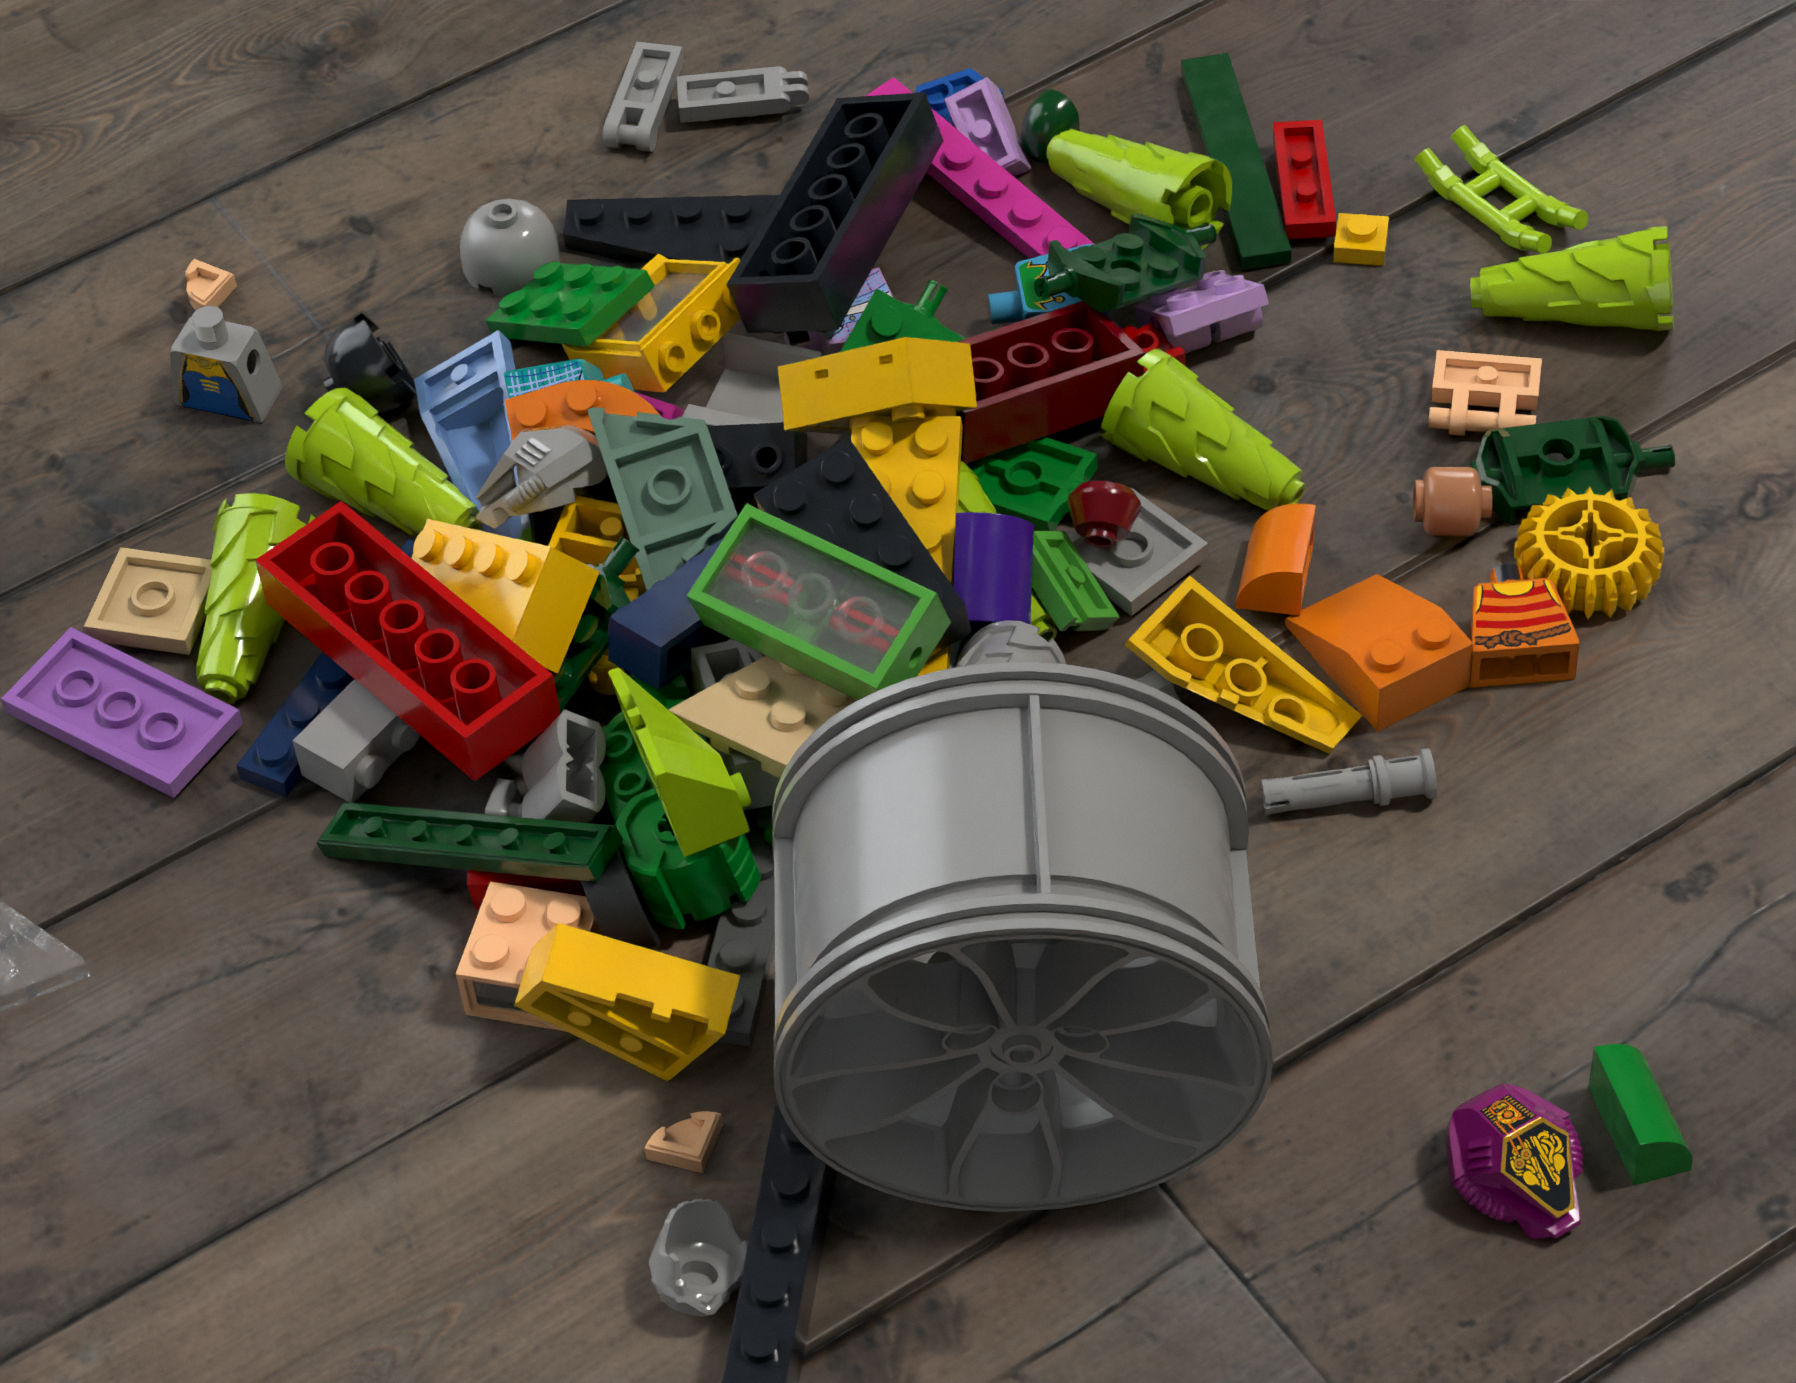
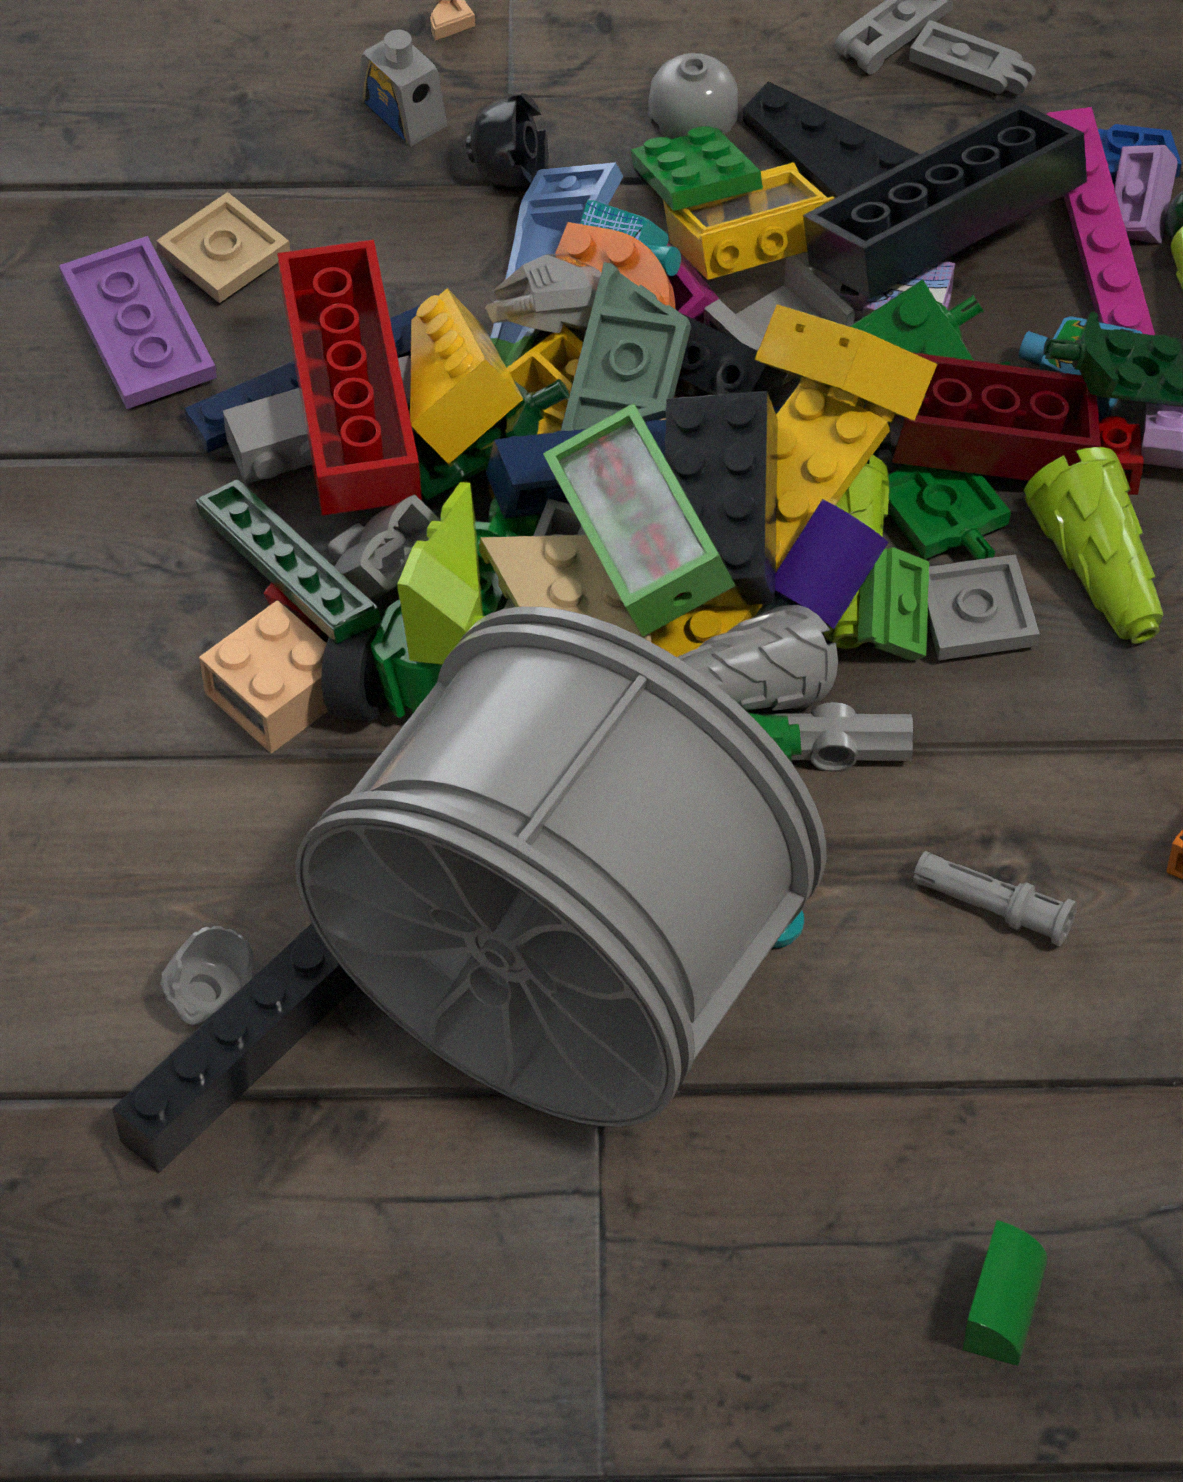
camera: 30 degrees right, 5 degrees up
(237, 617) = (256, 303): lime cone -> none
(372, 466) = (448, 224): lime cone -> none
(627, 998) = (292, 741): yellow wedge -> none
(686, 1142) = (274, 884): light nougat tile -> none
(1103, 512) = (965, 562): dark red cone -> none
(1225, 659) = (970, 741): yellow wedge -> none
(1278, 560) = (1087, 681): orange brick -> none
(1385, 649) = (1115, 800): orange slope -> none
(1516, 1160) = (875, 1272): magenta helmet -> none

